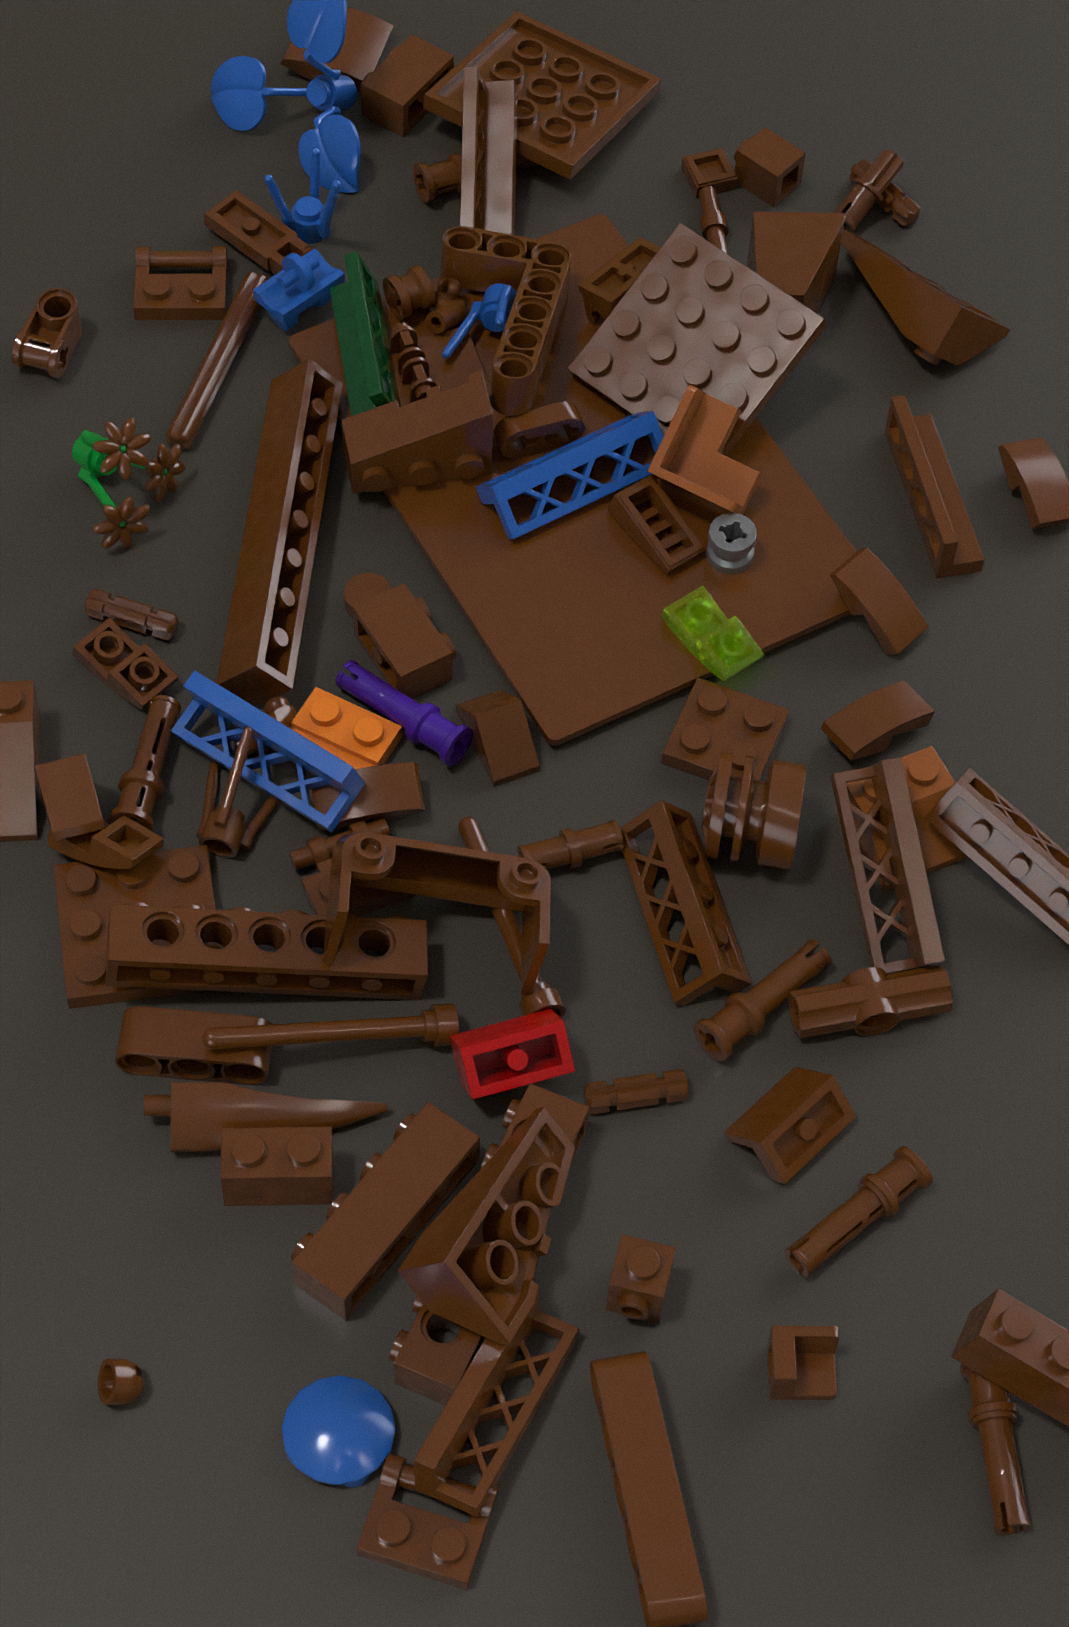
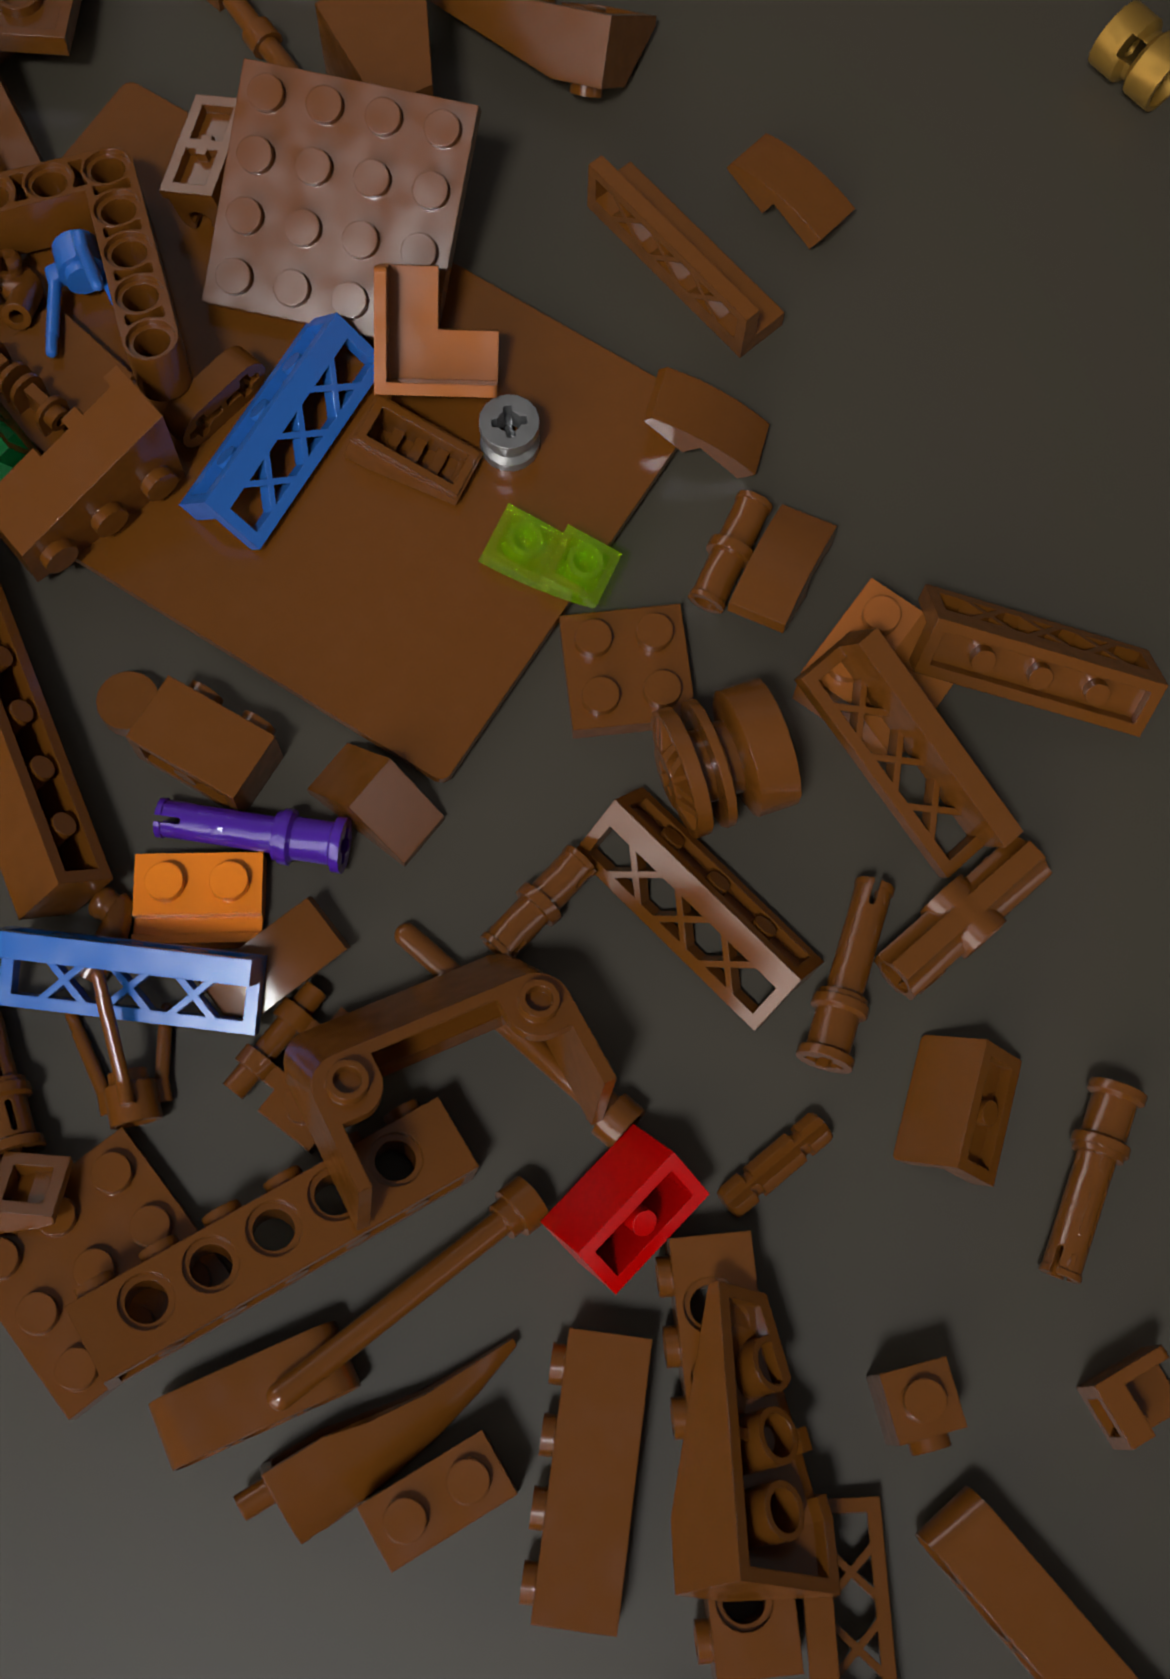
camera: 30 degrees left, 15 degrees up
(845, 691) = (730, 551): none -> reddish brown pin

